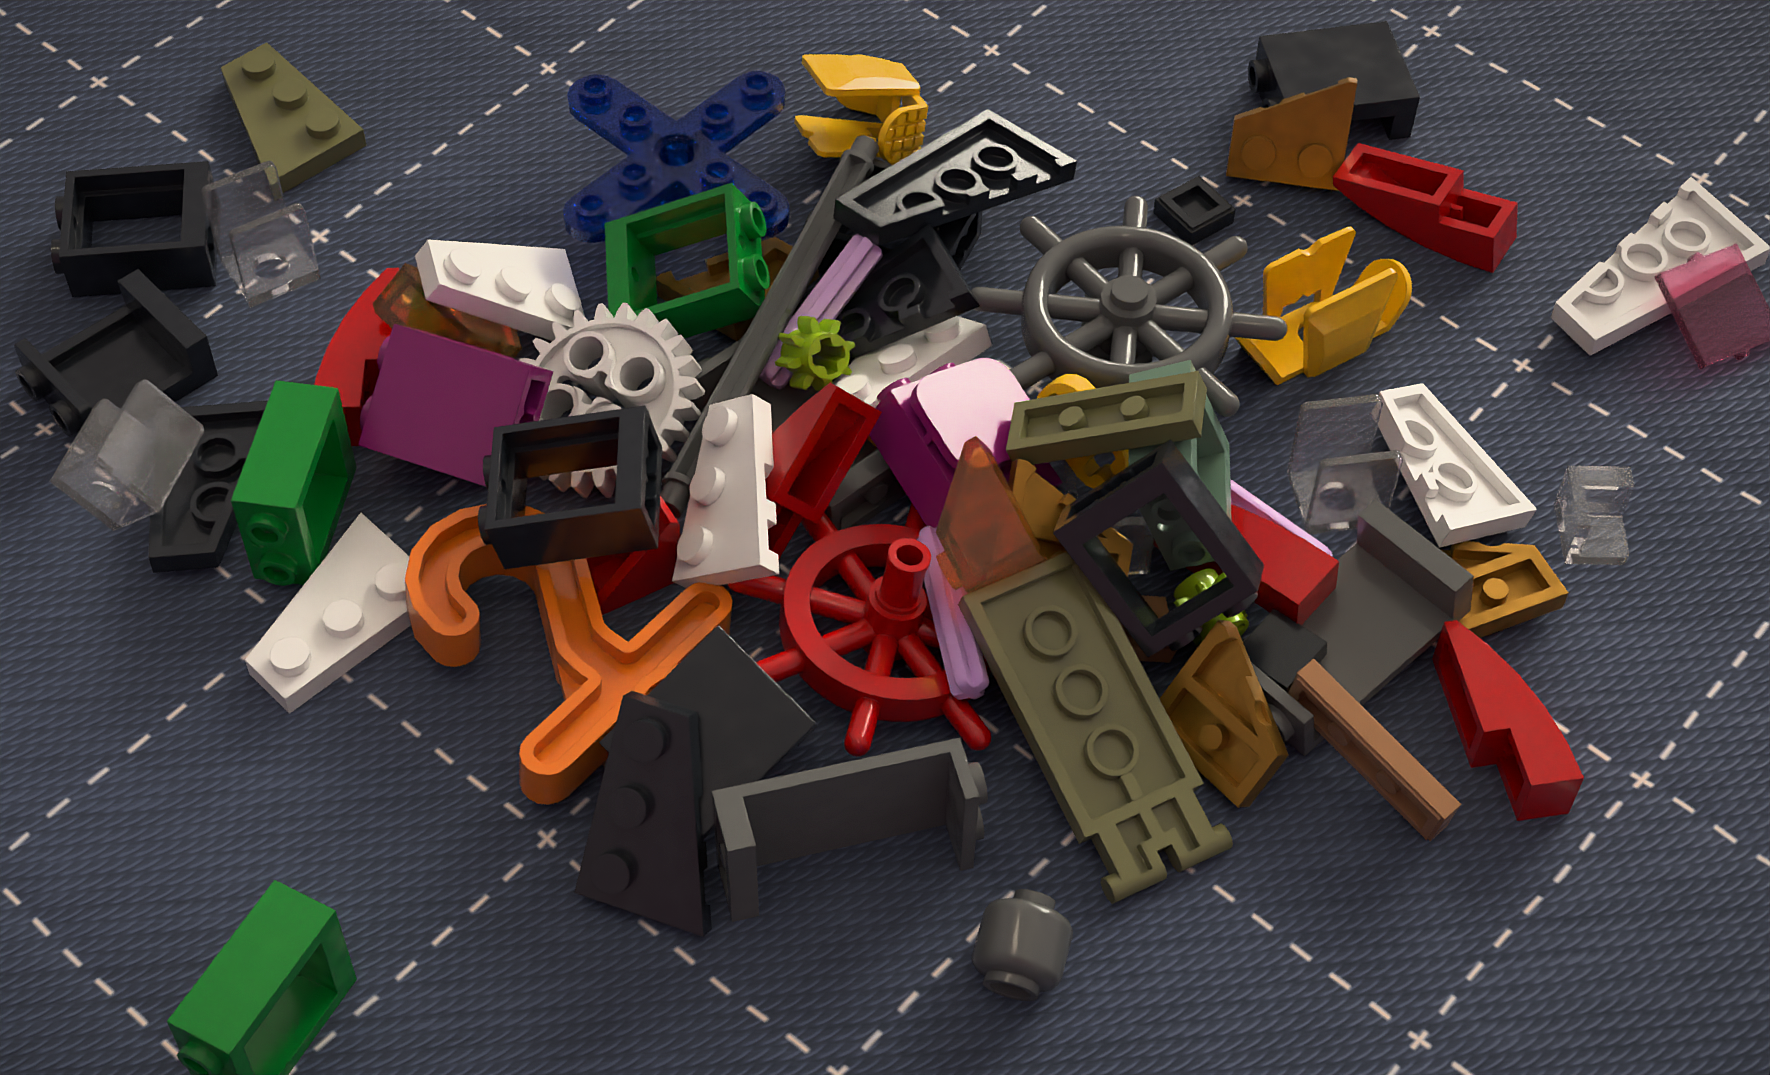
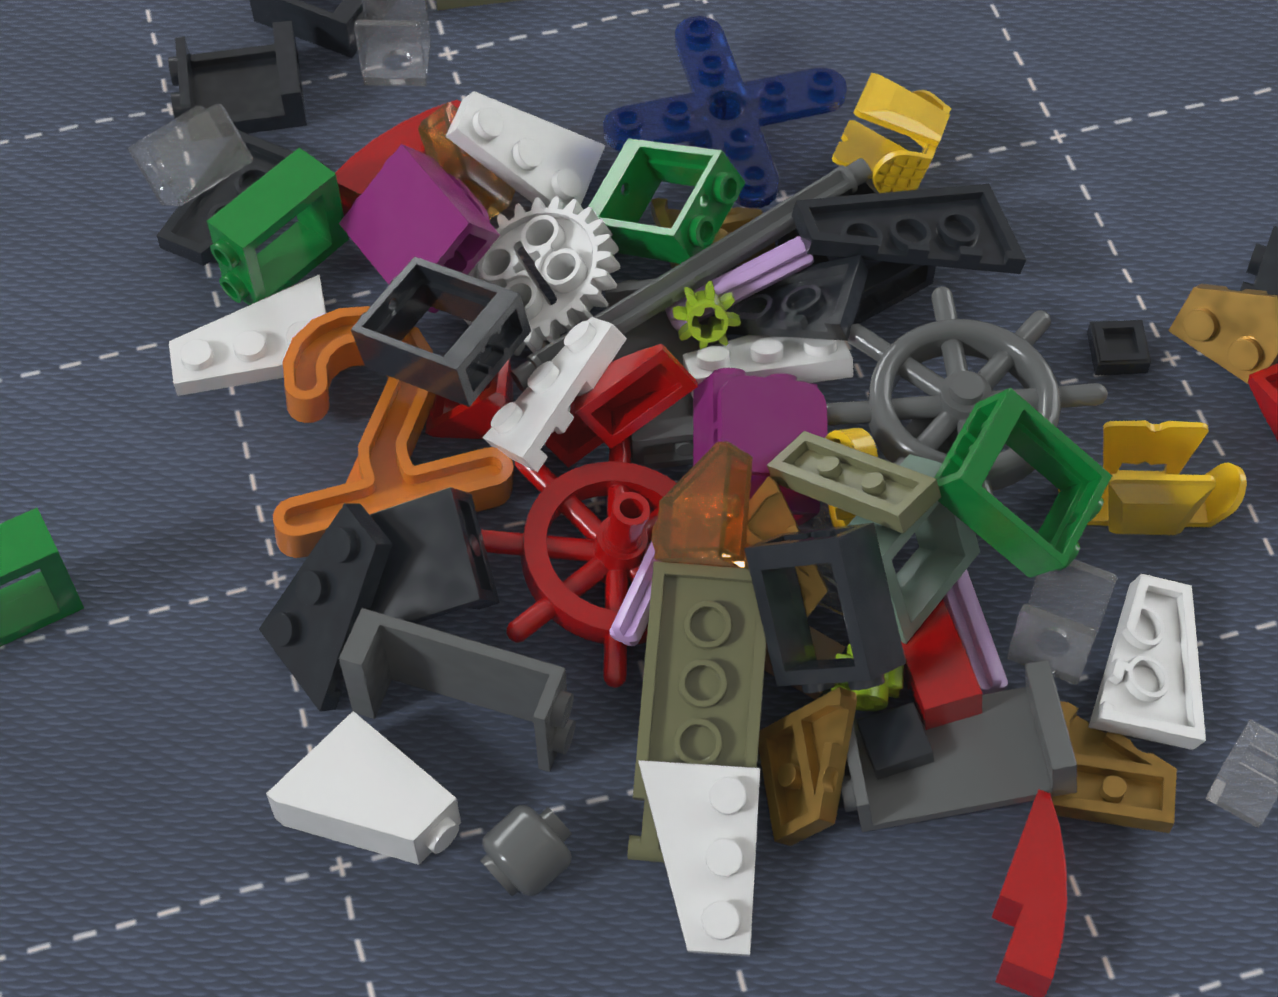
camera: 35 degrees right, 5 degrees up
(825, 985) = (366, 796): none -> white slope
(1192, 838) = (708, 848): none -> white wing
(1223, 300) = (1081, 482): none -> green window
(1374, 751) = (902, 858): medium nougat tile -> none

